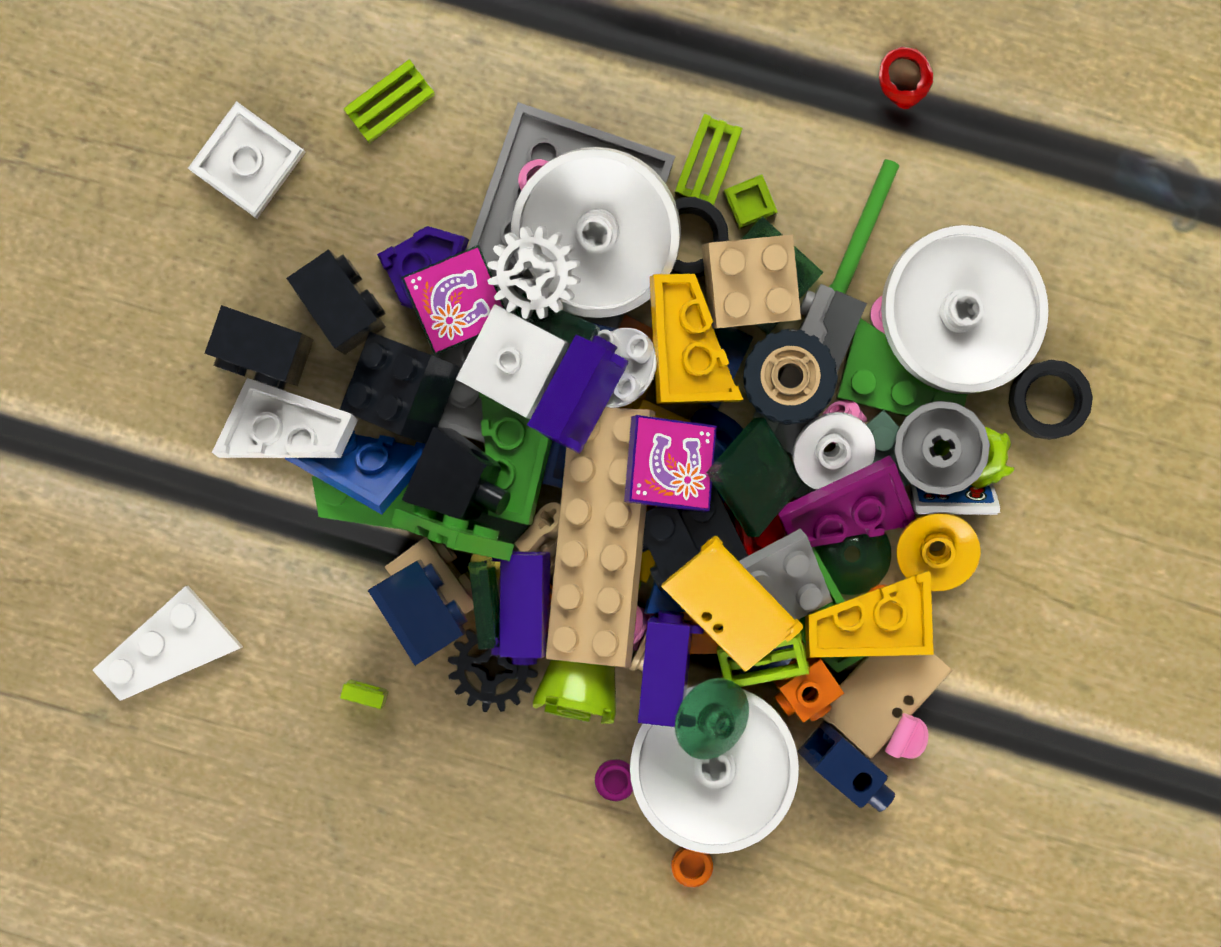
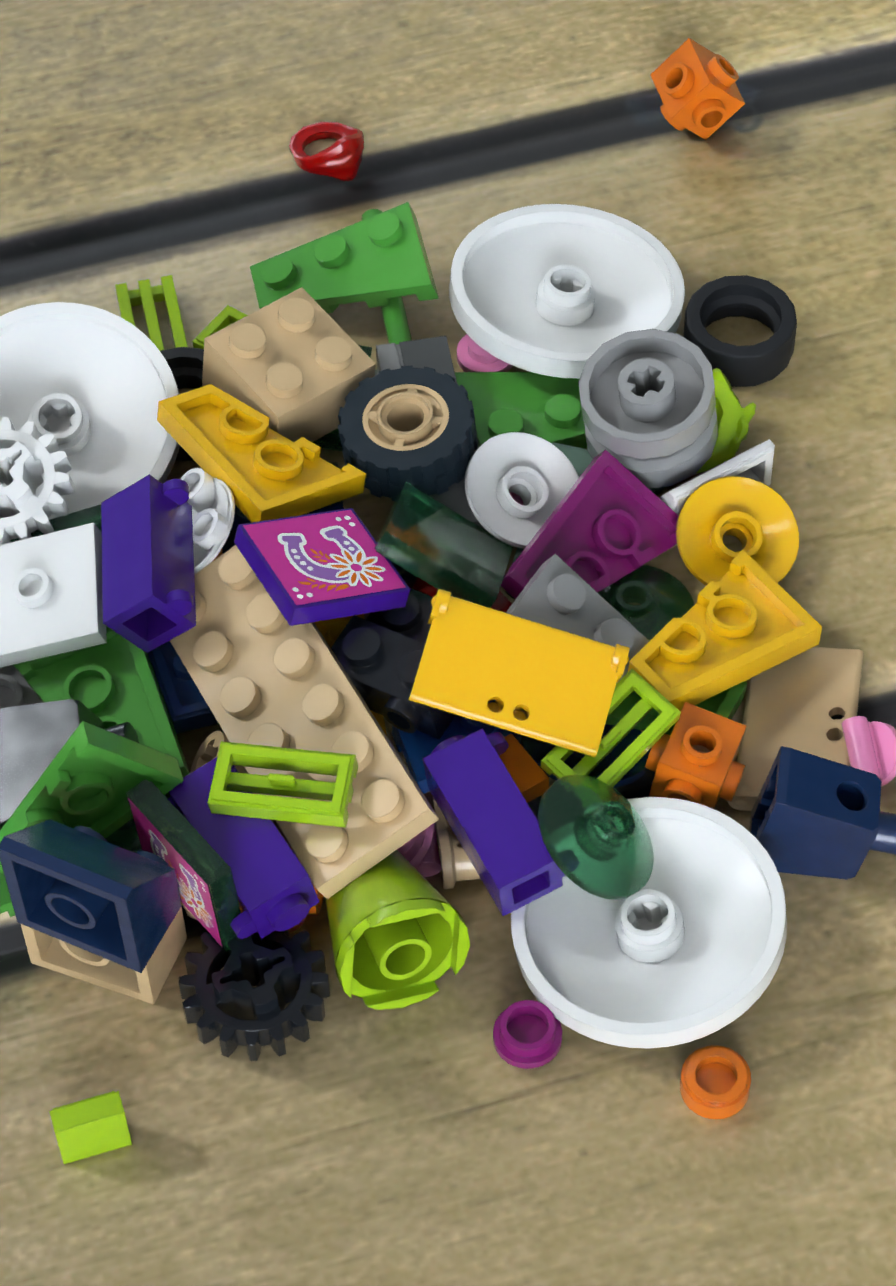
camera: 30 degrees left, 35 degrees down
(570, 589) = (277, 807): none -> lime tile
(849, 203) = (355, 264): none -> bright green wing
(1162, 194) = (697, 89): none -> orange brick

